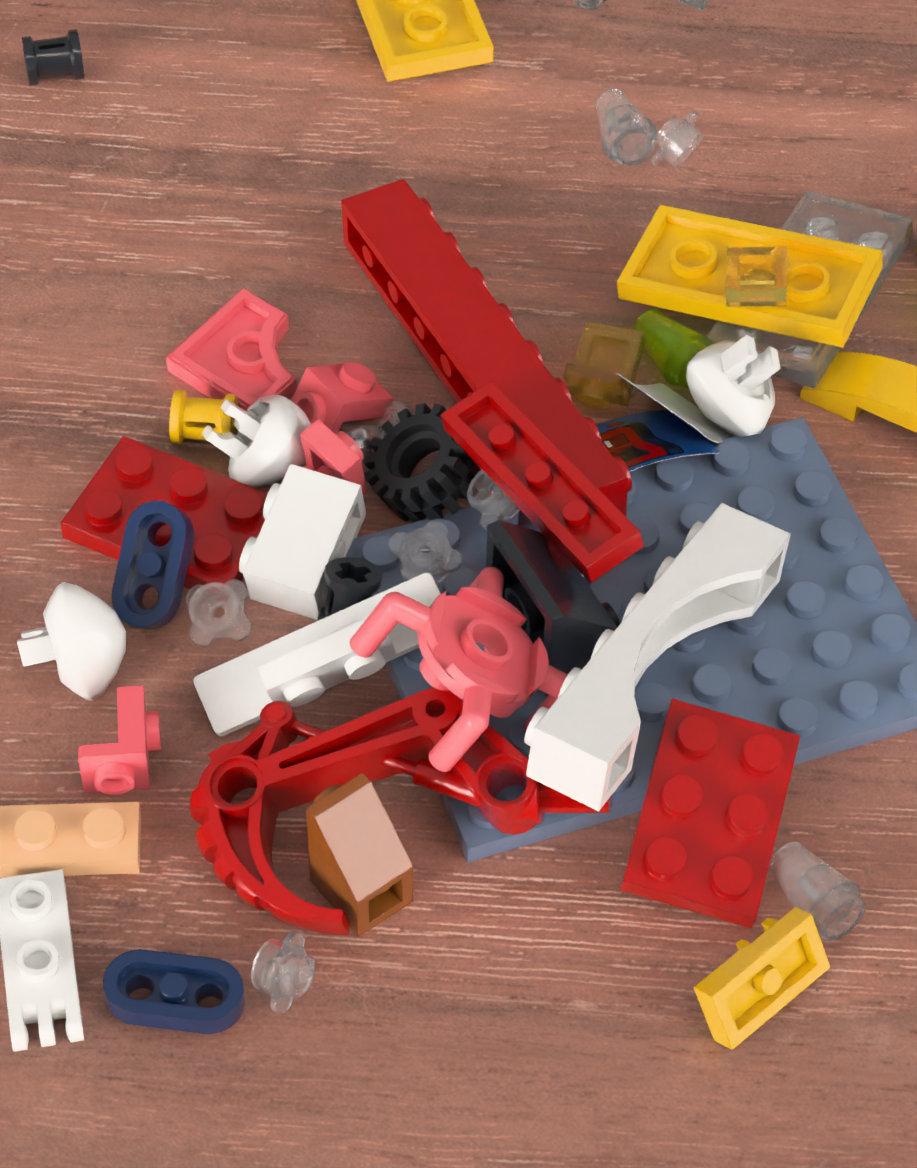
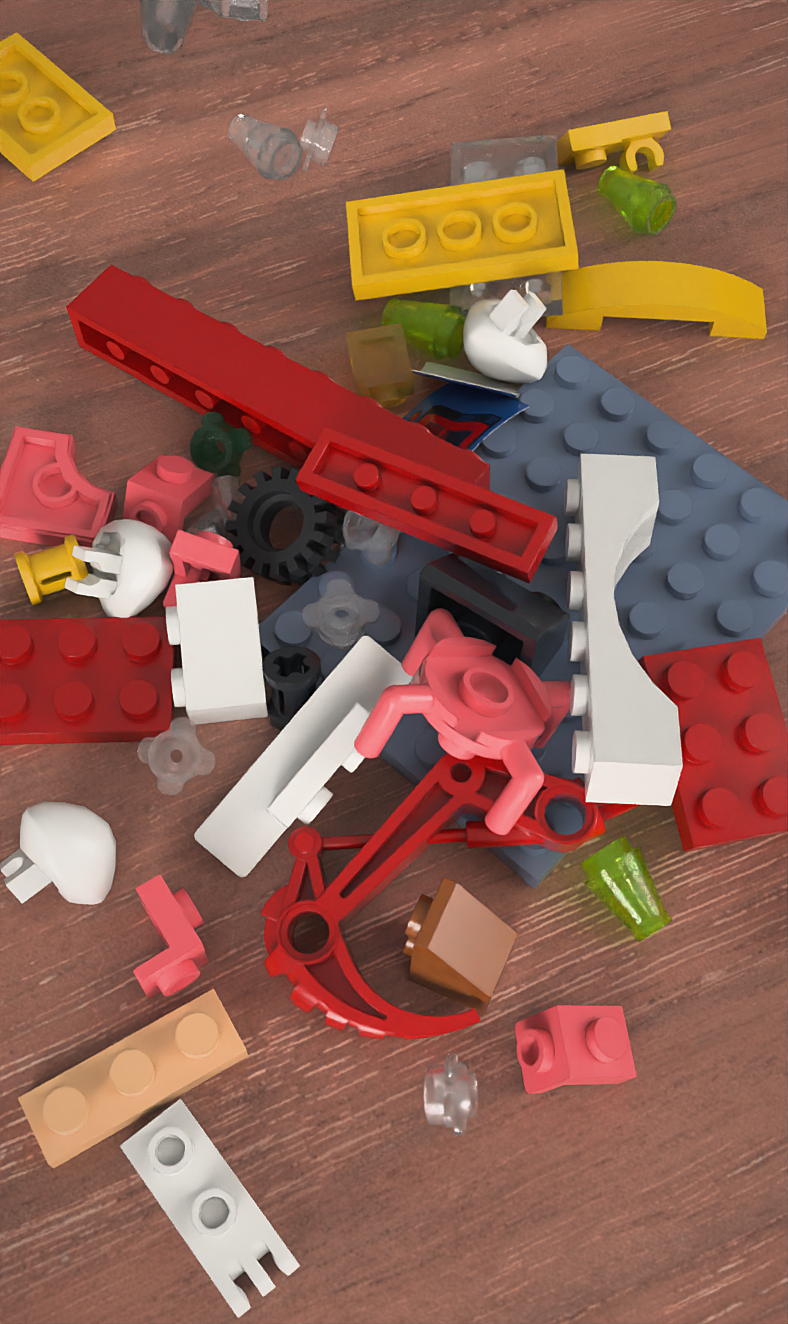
camera: 30 degrees left, 10 degrees up
(147, 565) = (91, 740): dark blue plate -> none
(176, 987) = (359, 1168): dark blue plate -> none
(411, 374) = (205, 448): none -> clear green plate
(416, 988) = (574, 1047): none -> coral bracket
(543, 884) = (625, 886): none -> clear neon green cone
(757, 276) = (482, 232): clear yellow plate -> none

